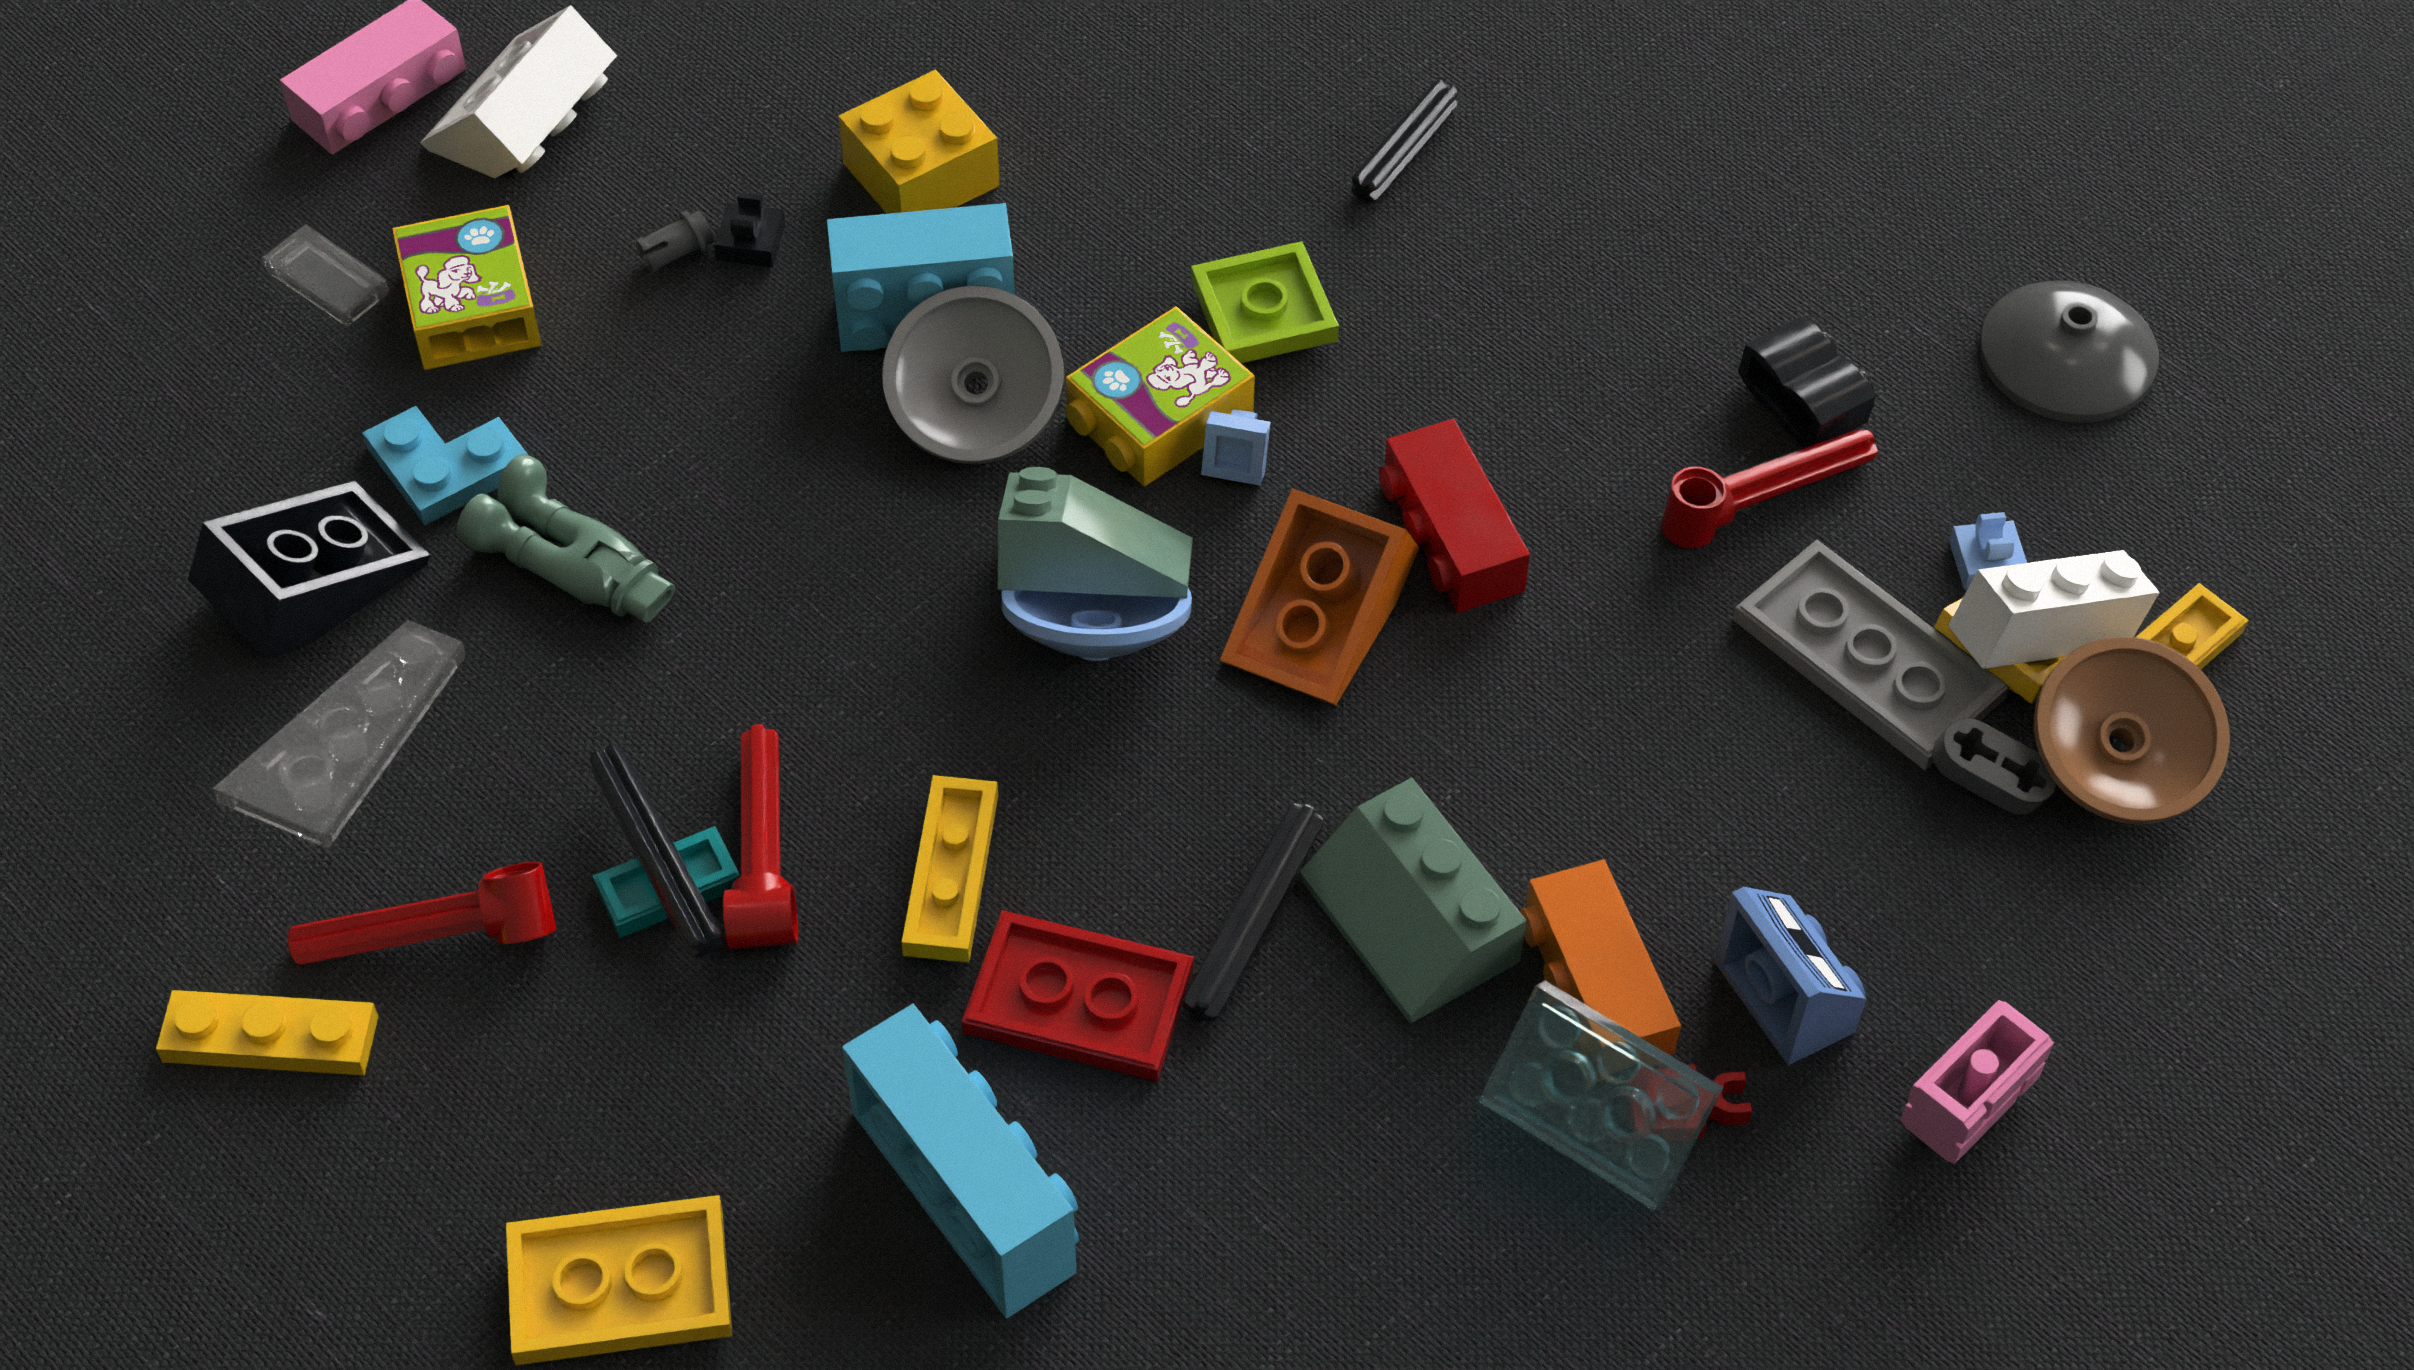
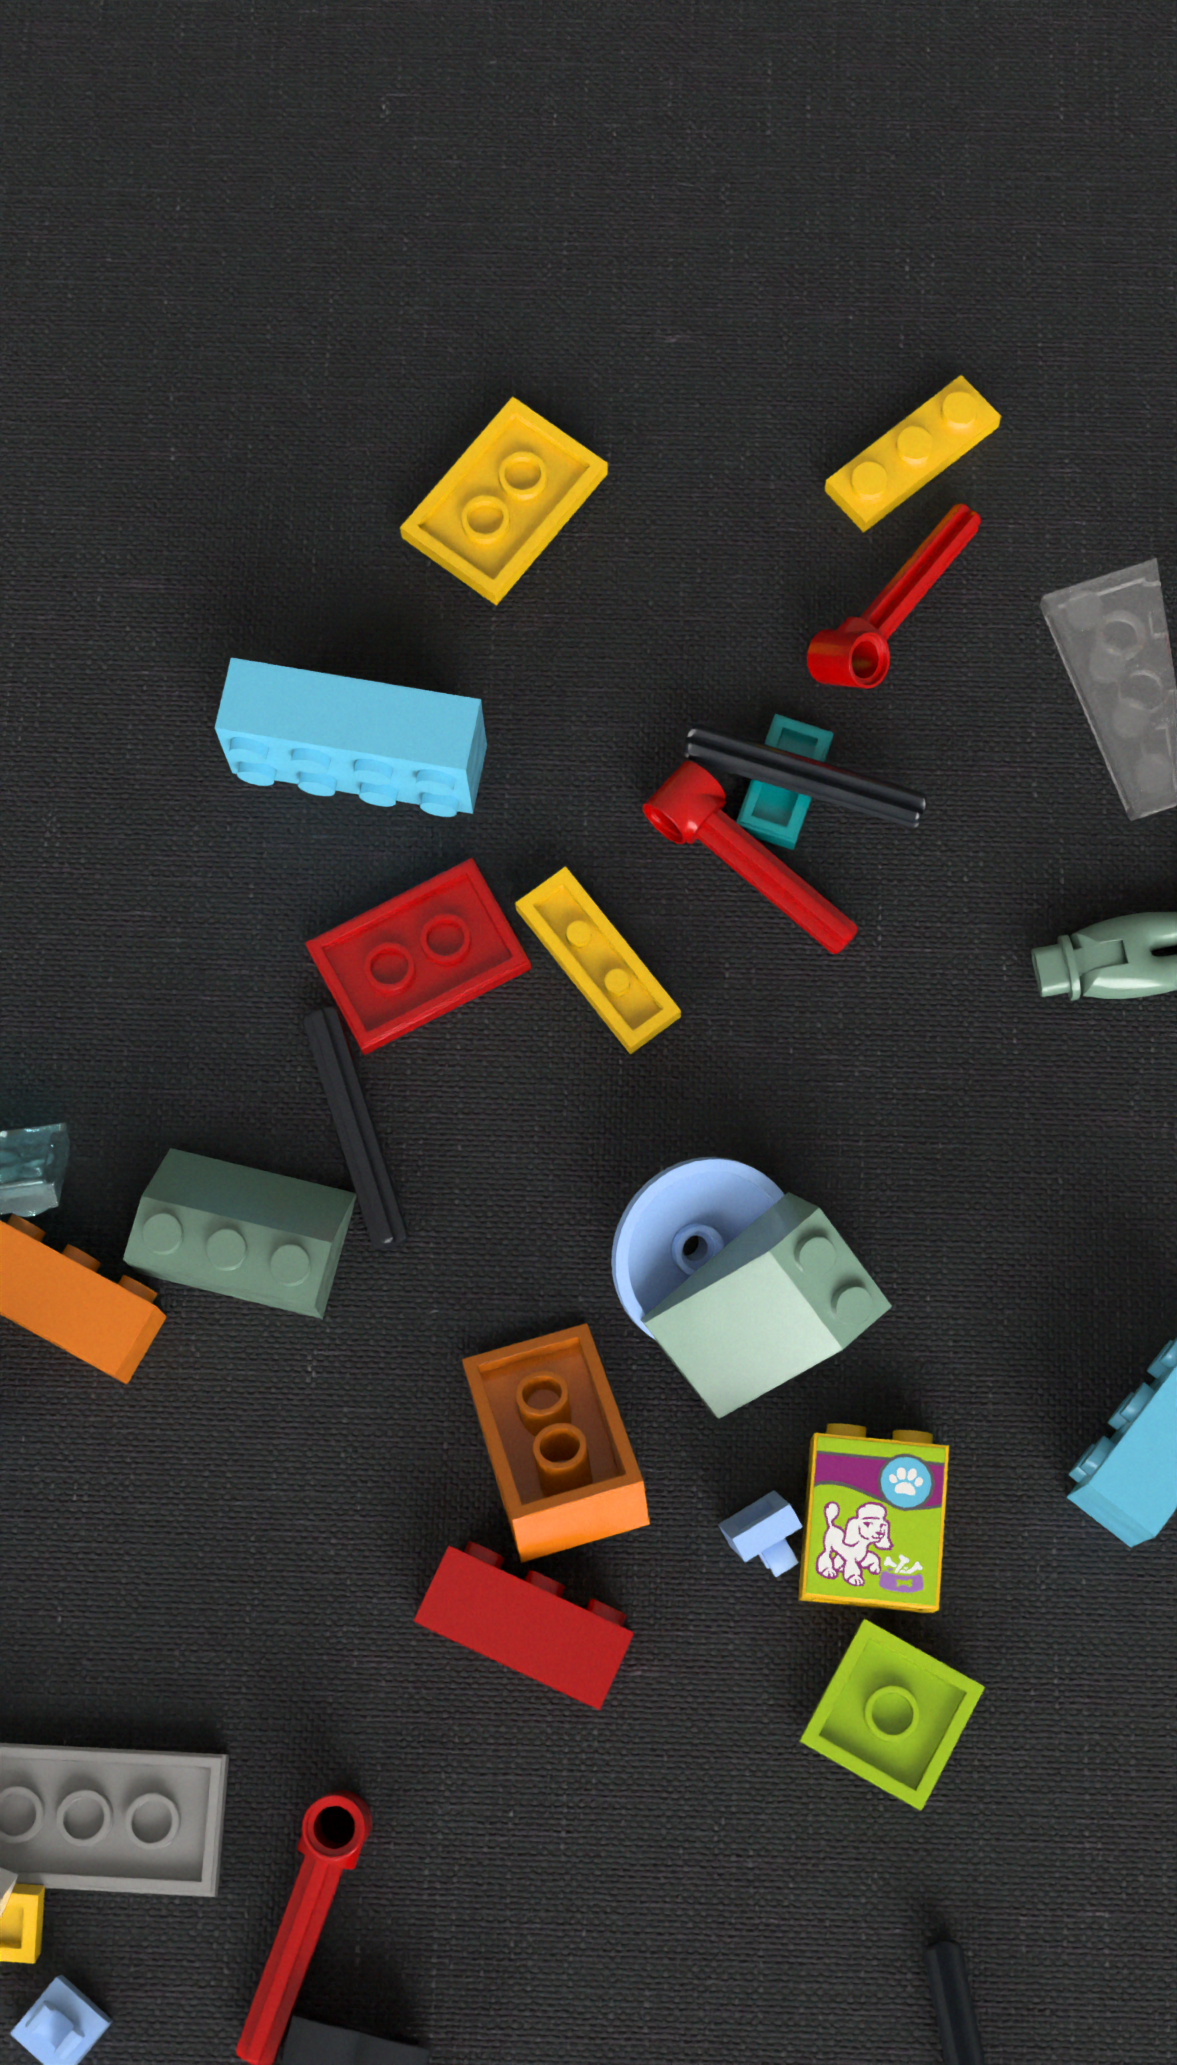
camera: 140 degrees right, 20 degrees up
(967, 337) = (1021, 1347): light grey dish -> none

